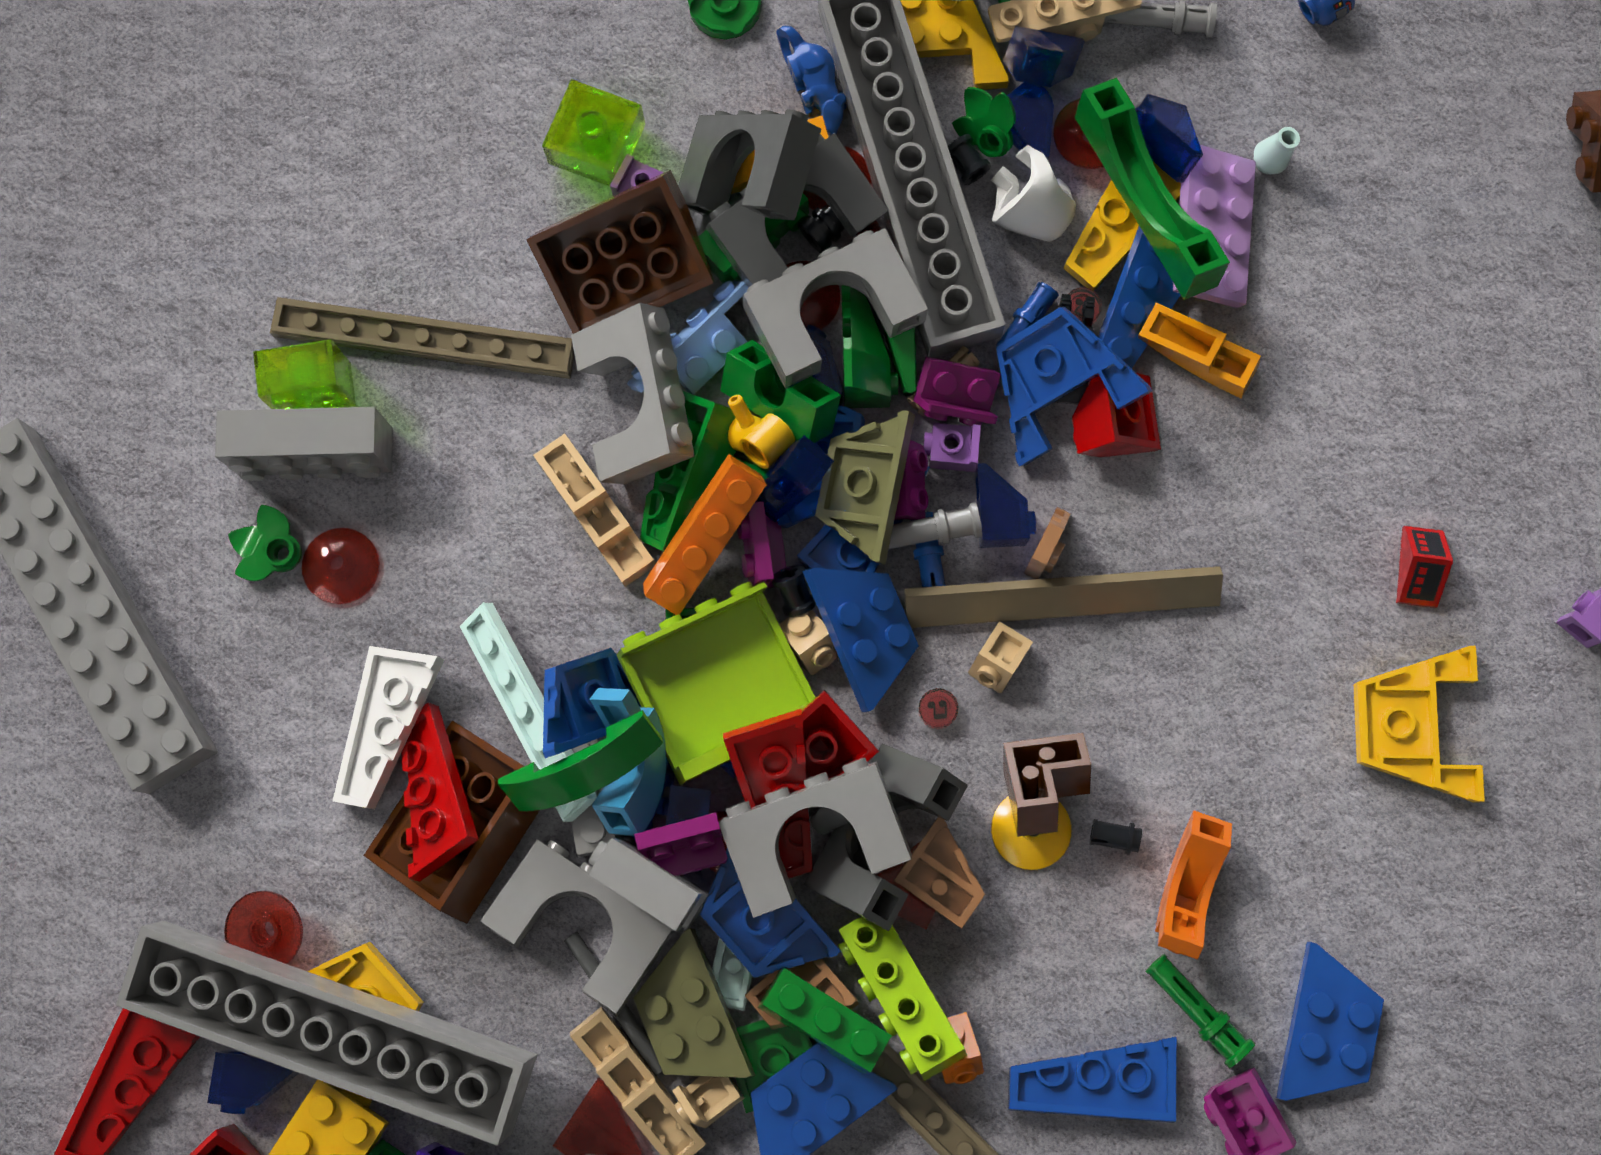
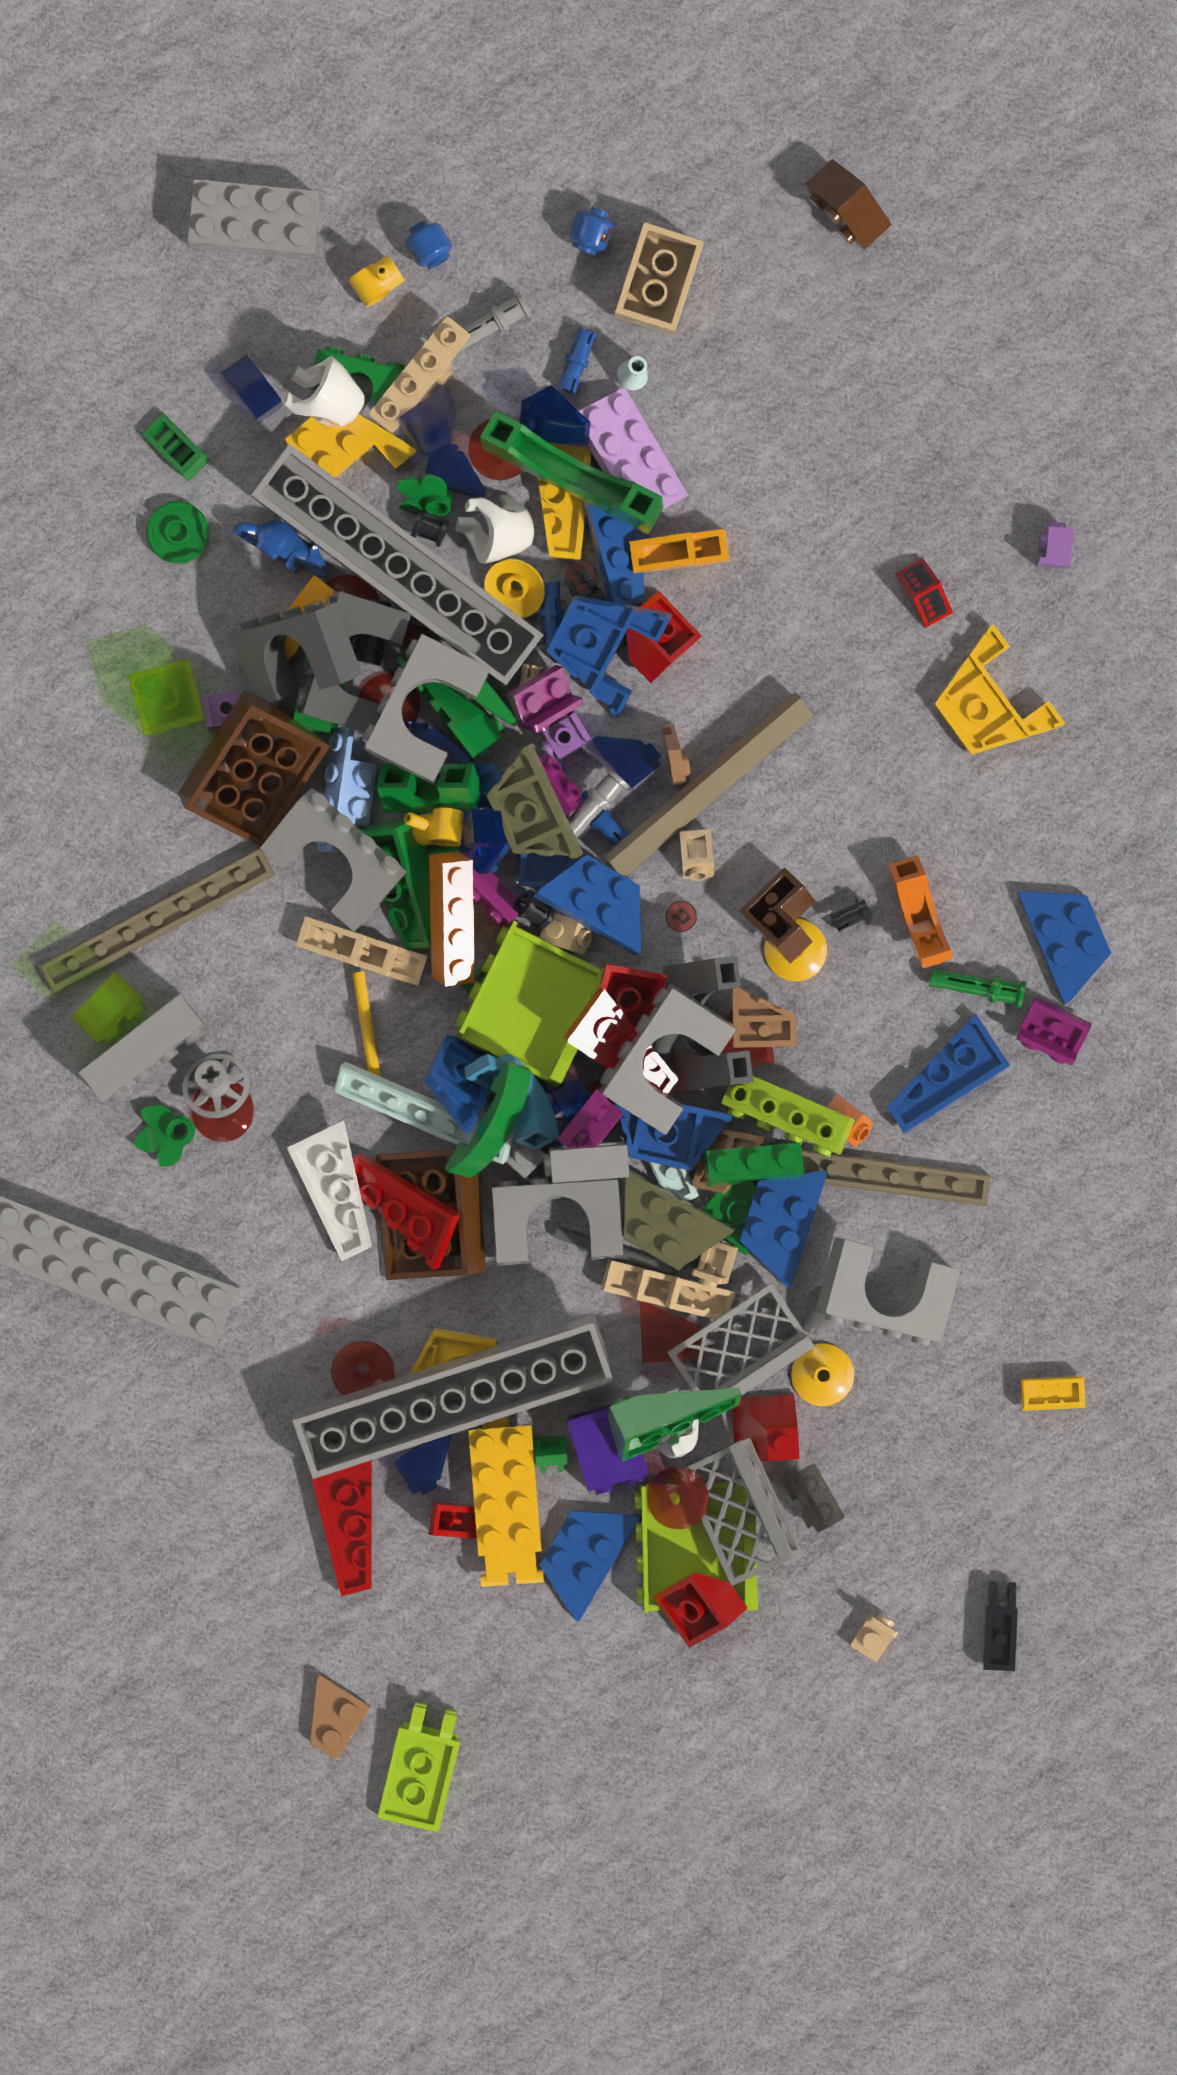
camera: 45 degrees left, 10 degrees up
(349, 528) = (214, 1082): none -> light grey wheel
(544, 583) = (366, 1023): none -> yellow bar
(1001, 254) = (501, 585): none -> yellow dish
(1226, 106) = (576, 360): none -> blue pin
(1364, 81) = (659, 279): none -> tan brick

